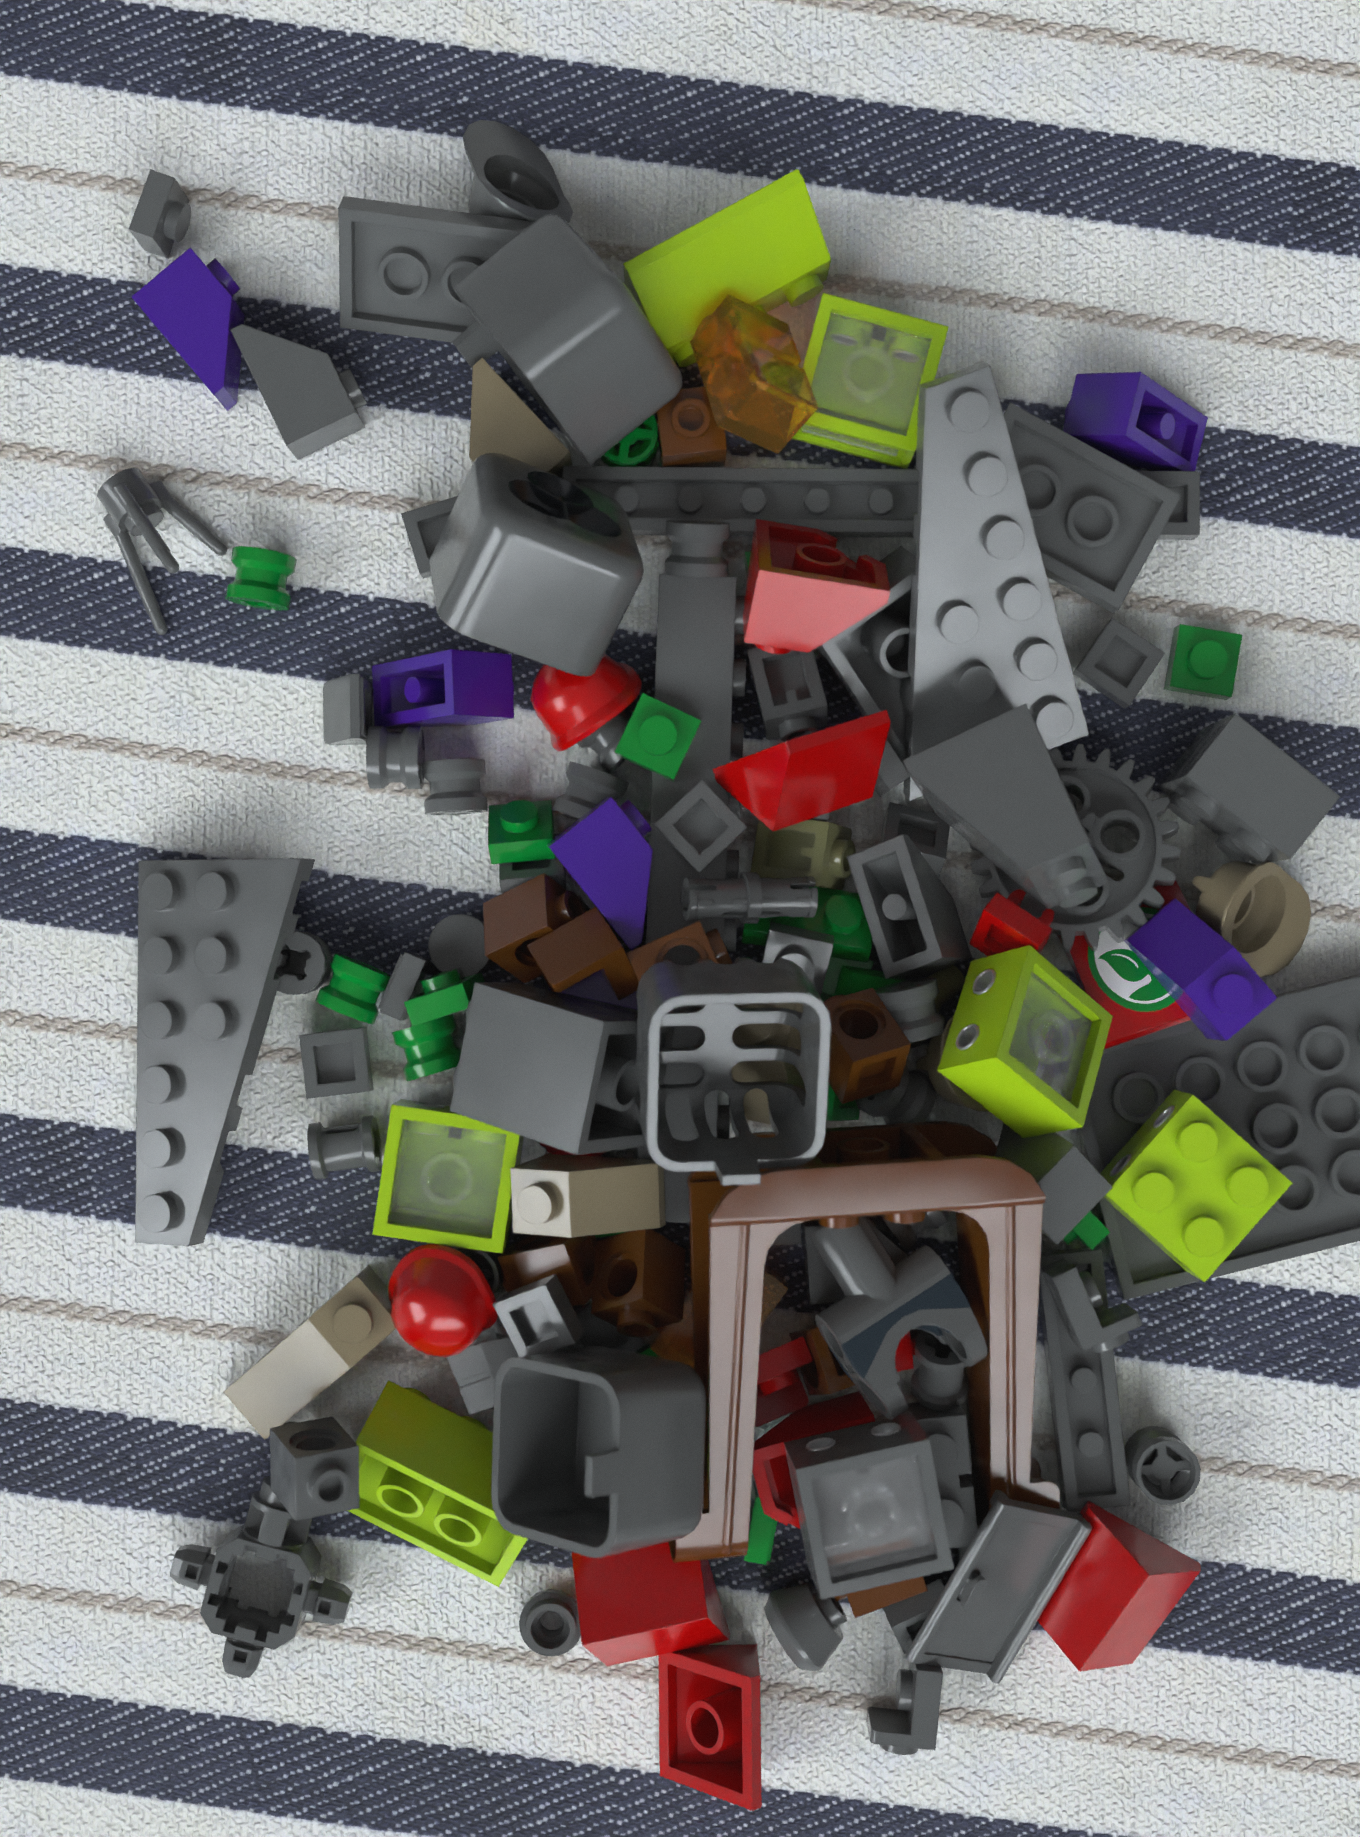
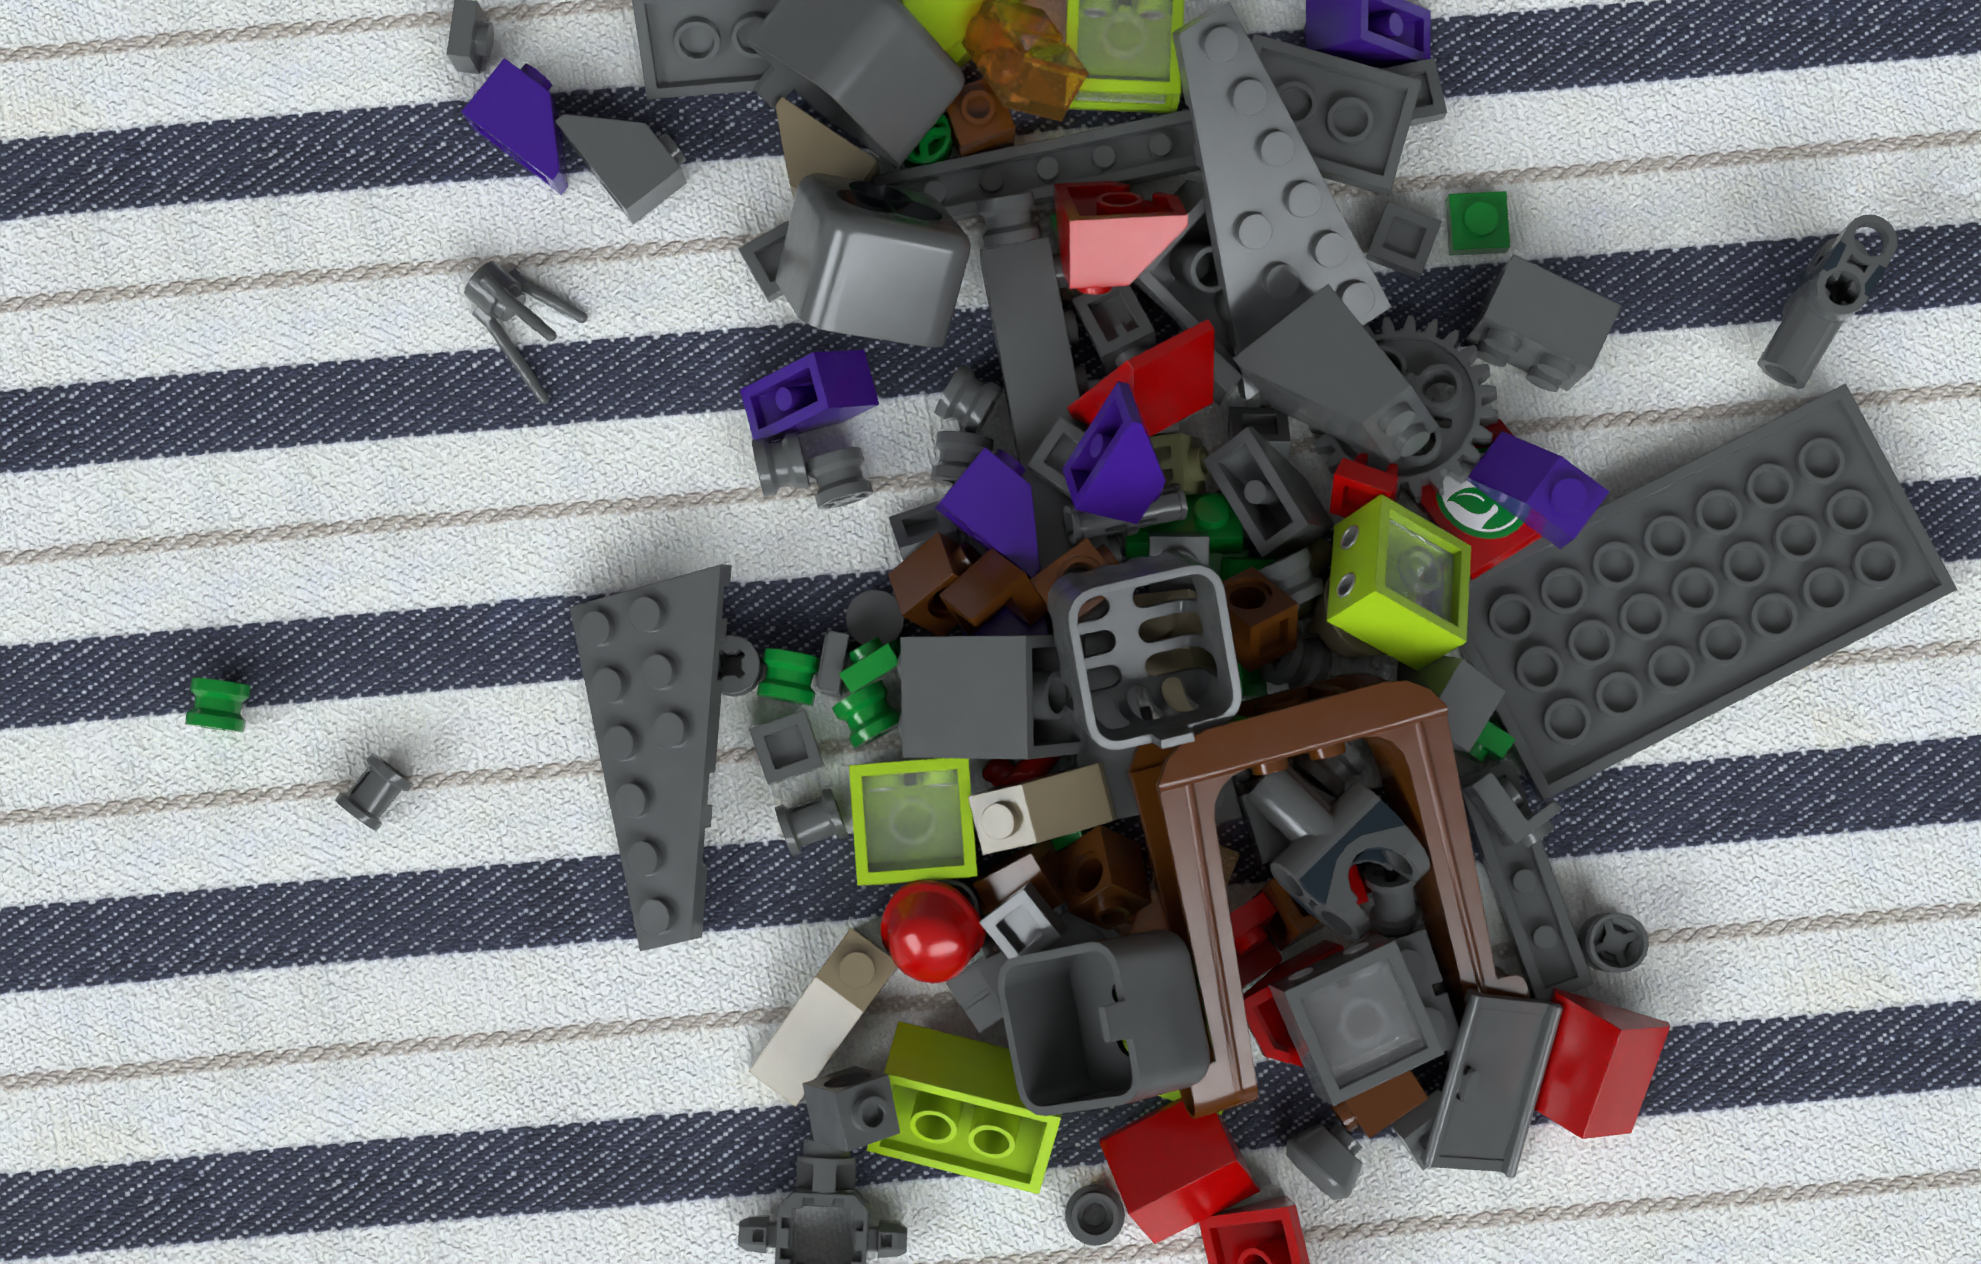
camera: 10 degrees left, 5 degrees down
(260, 578) = (625, 333): green wheel -> none
(347, 710) = (726, 433): dark grey slope -> none
(520, 831) = (907, 503): green plate -> none
(580, 705) = (934, 376): red helmet -> none
(658, 737) = (1012, 390): green plate -> none
(747, 848) = (1115, 462): none -> dark purple slope
(761, 1532) = (1267, 1080): green tile -> none
(916, 1714) = (1444, 1202): dark grey bracket -> none
(1192, 1184) = (1576, 678): lime piece -> none
(1256, 911) = (1578, 426): dark tan piece -> none

